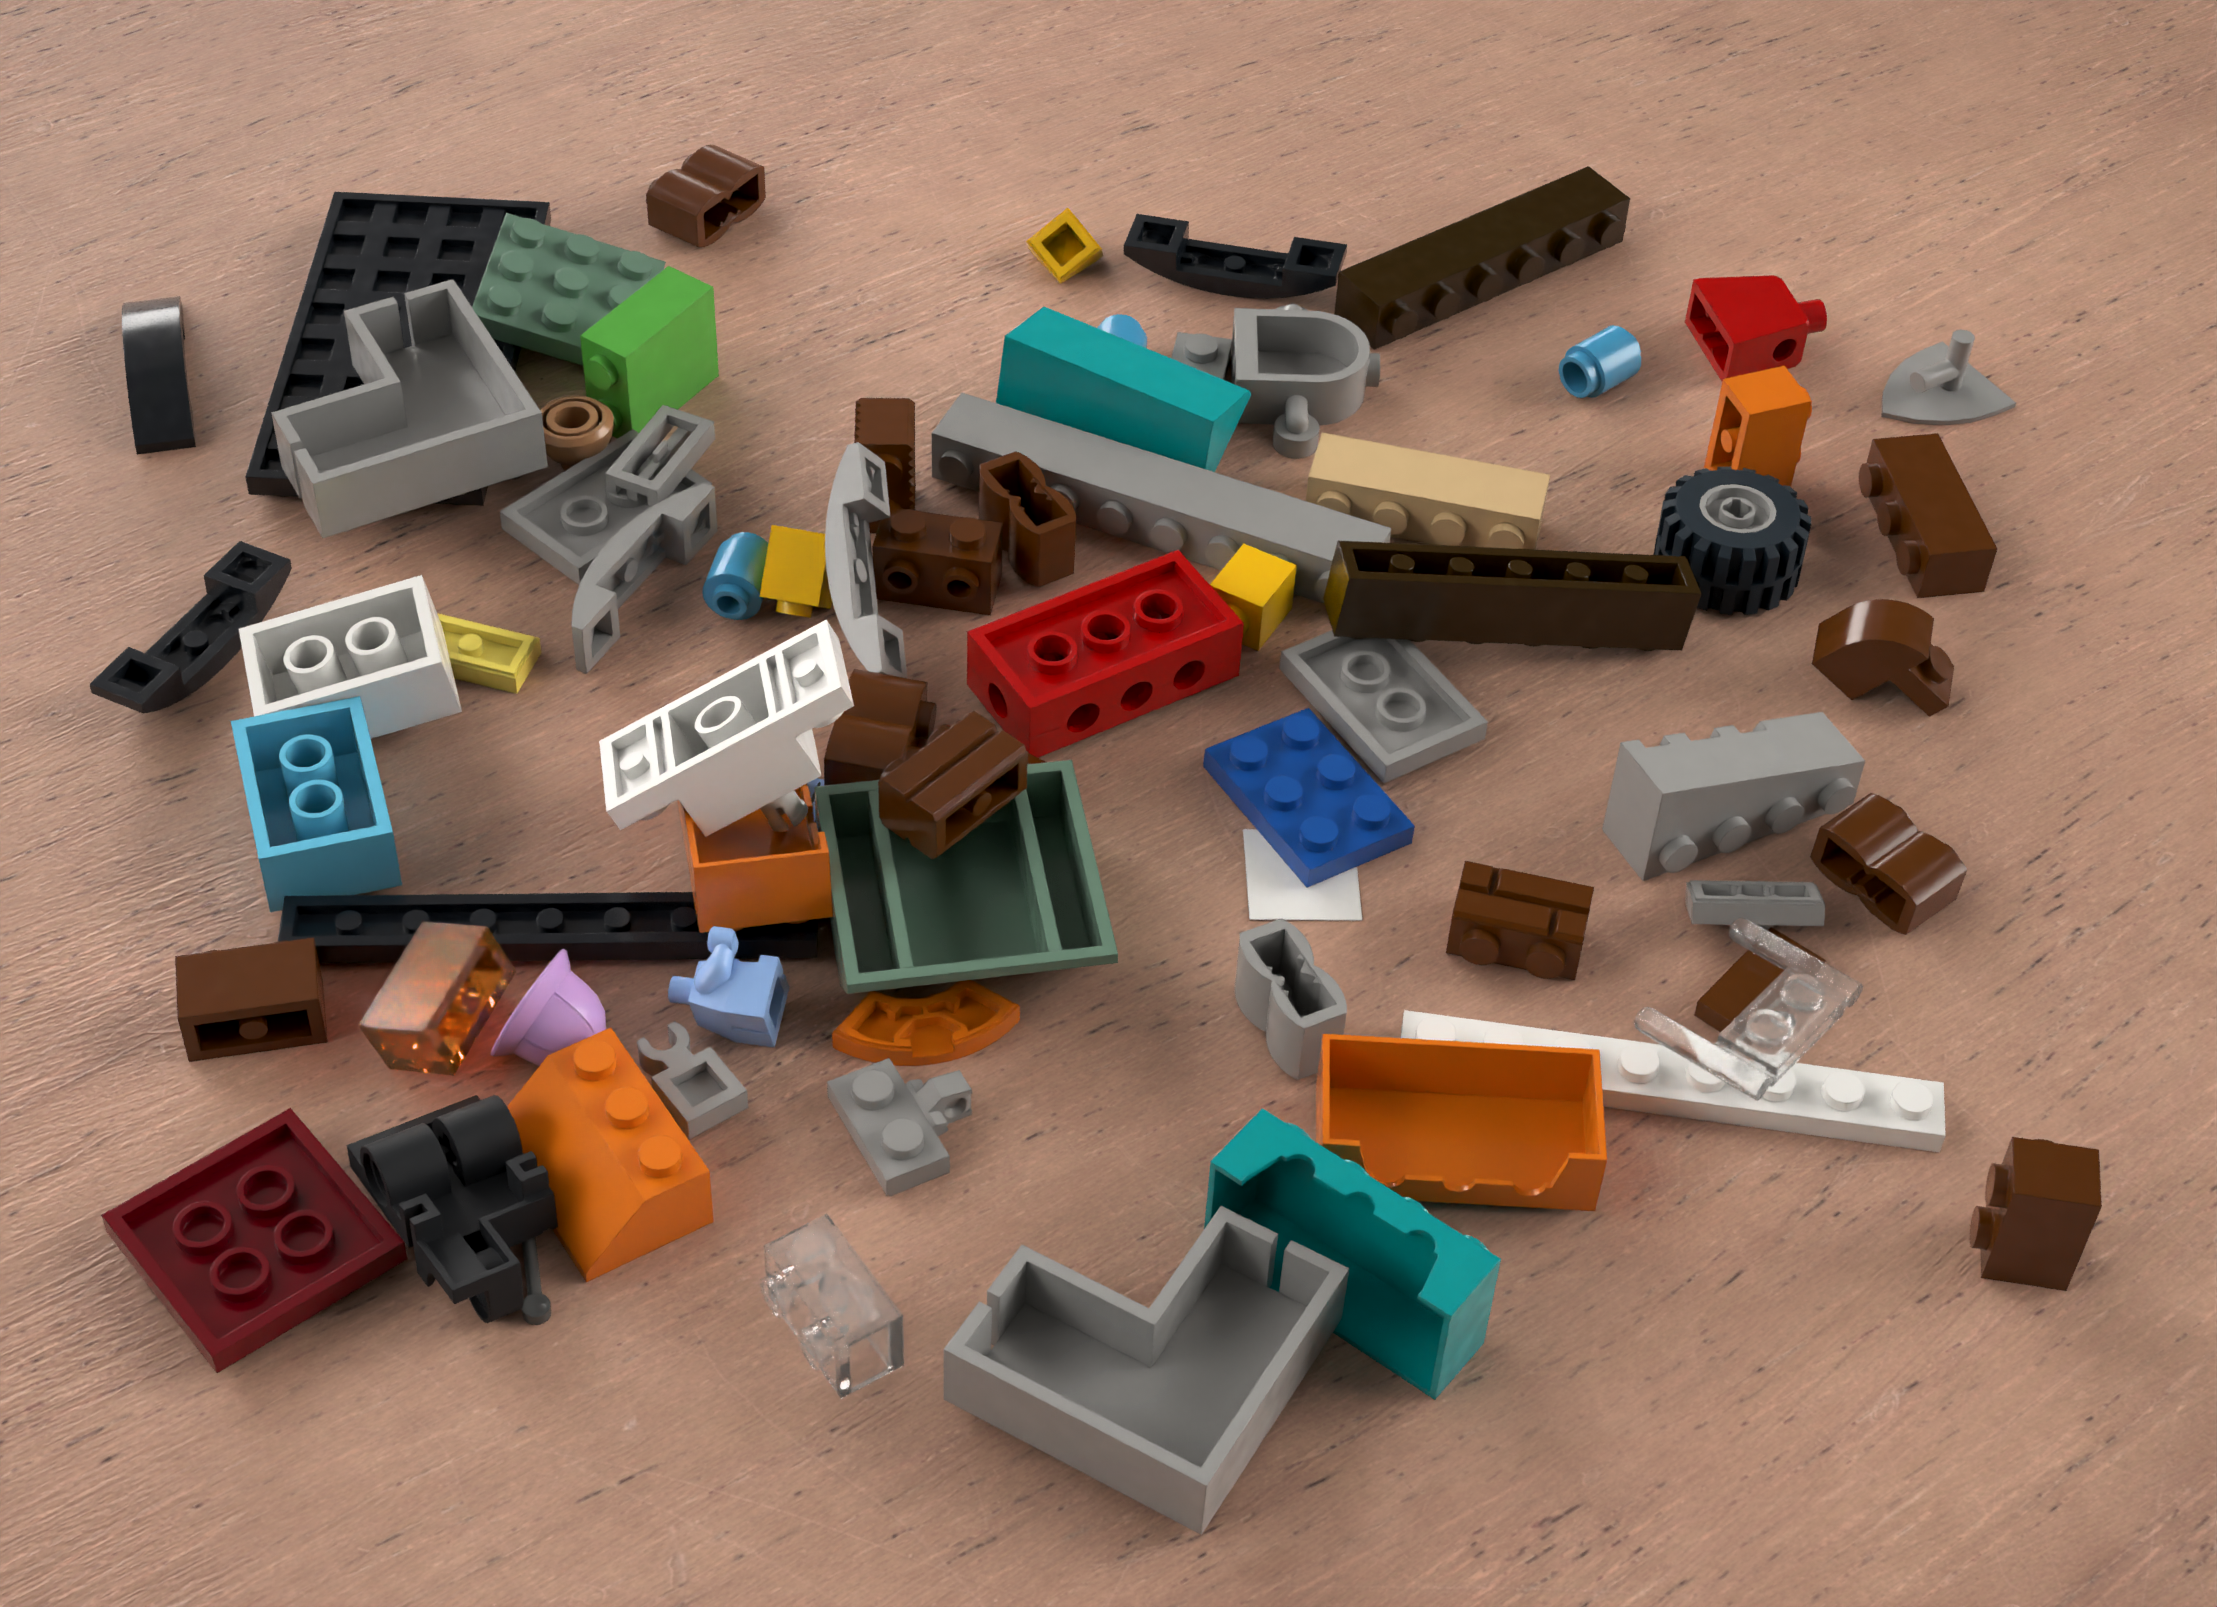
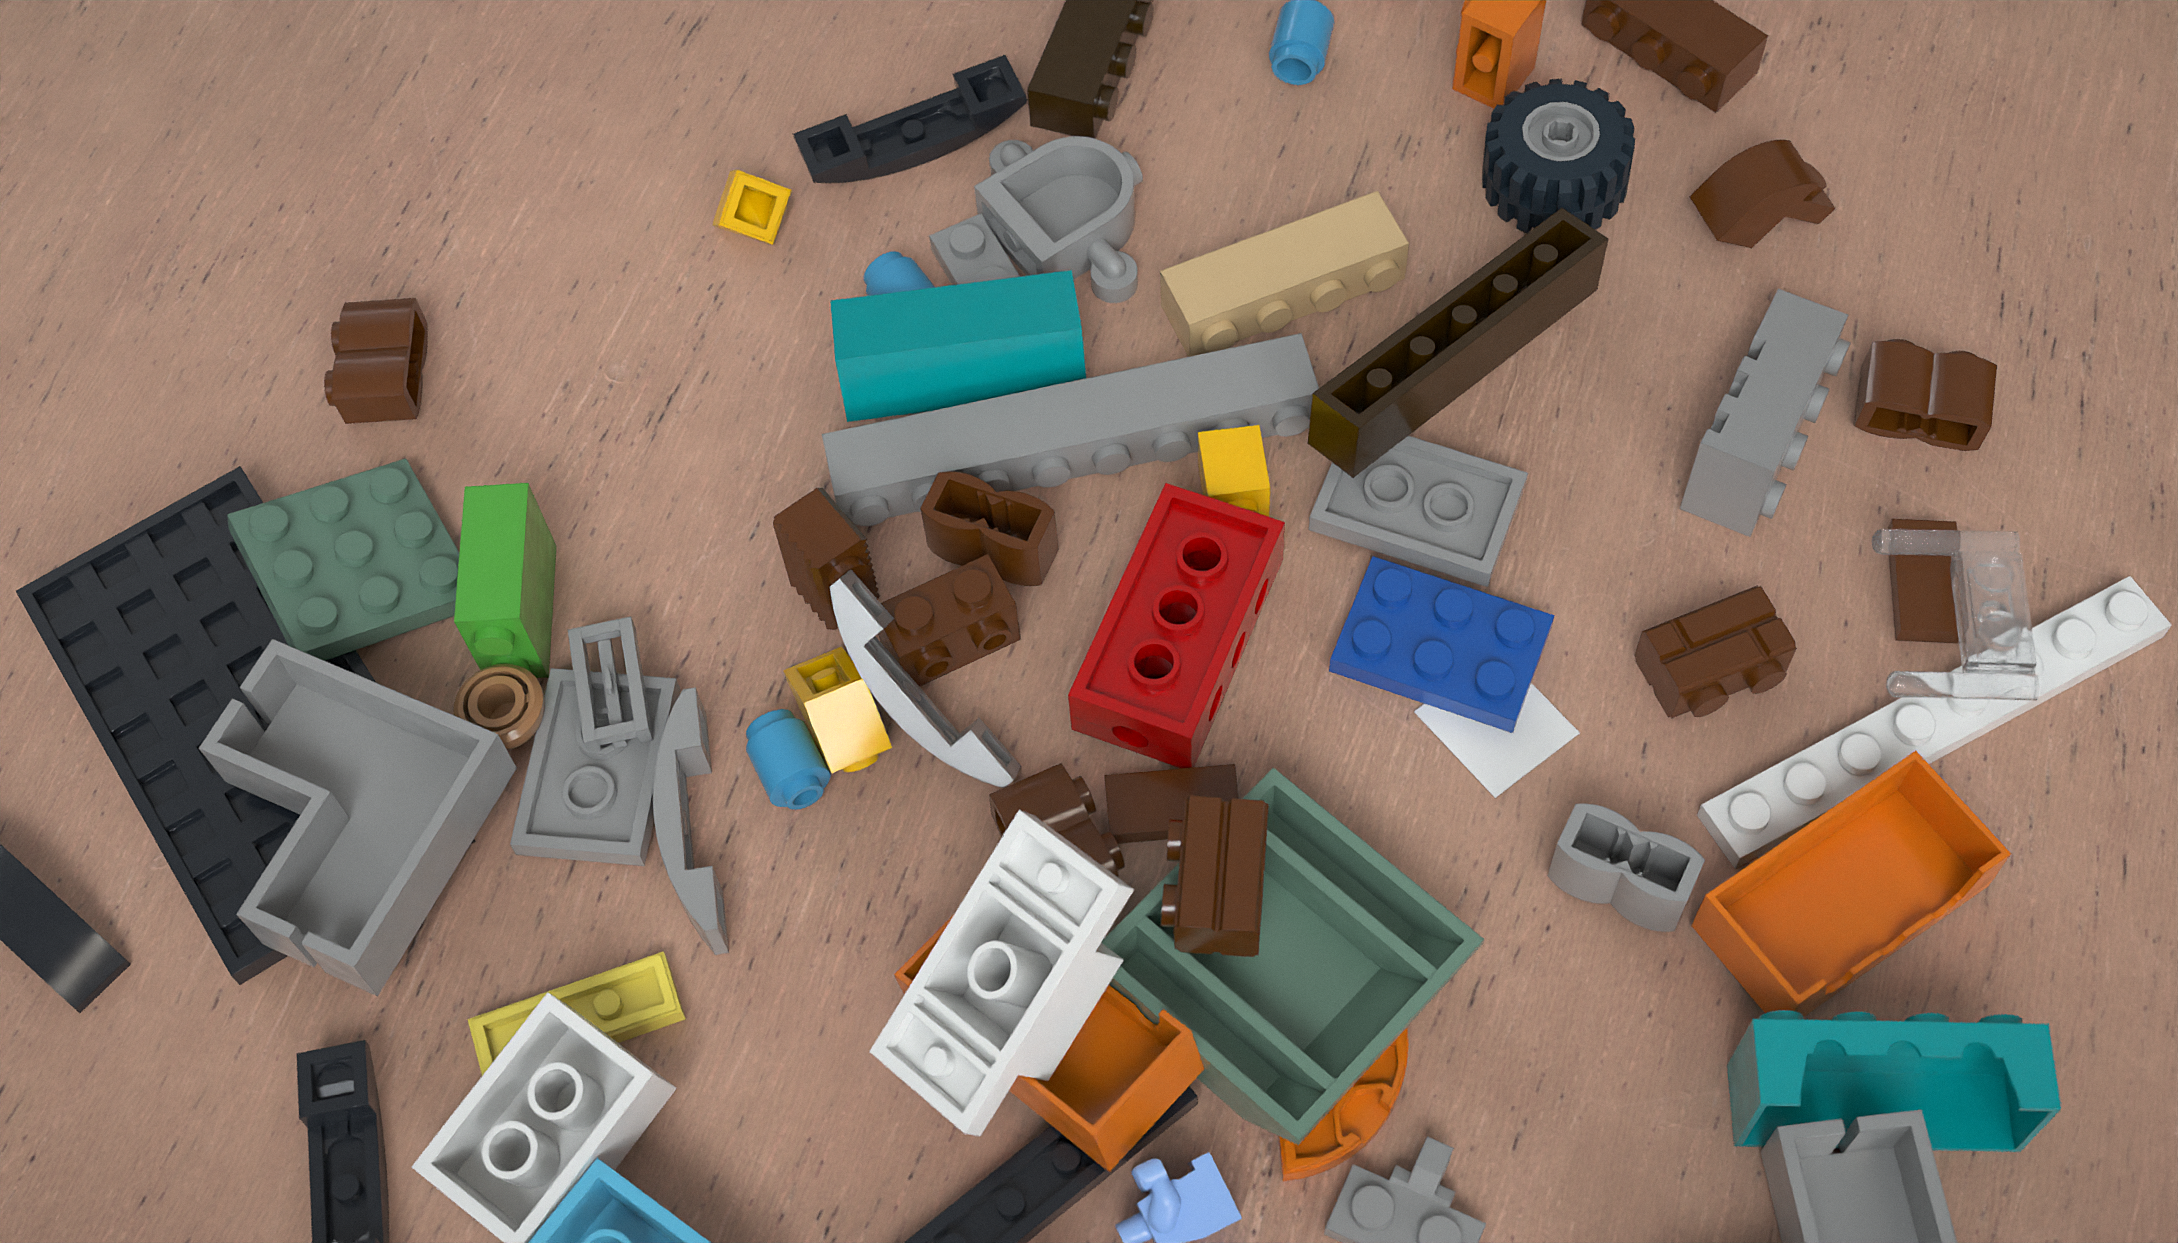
camera: 30 degrees left, 15 degrees up
(1755, 900) = (1865, 505): light grey plate -> none

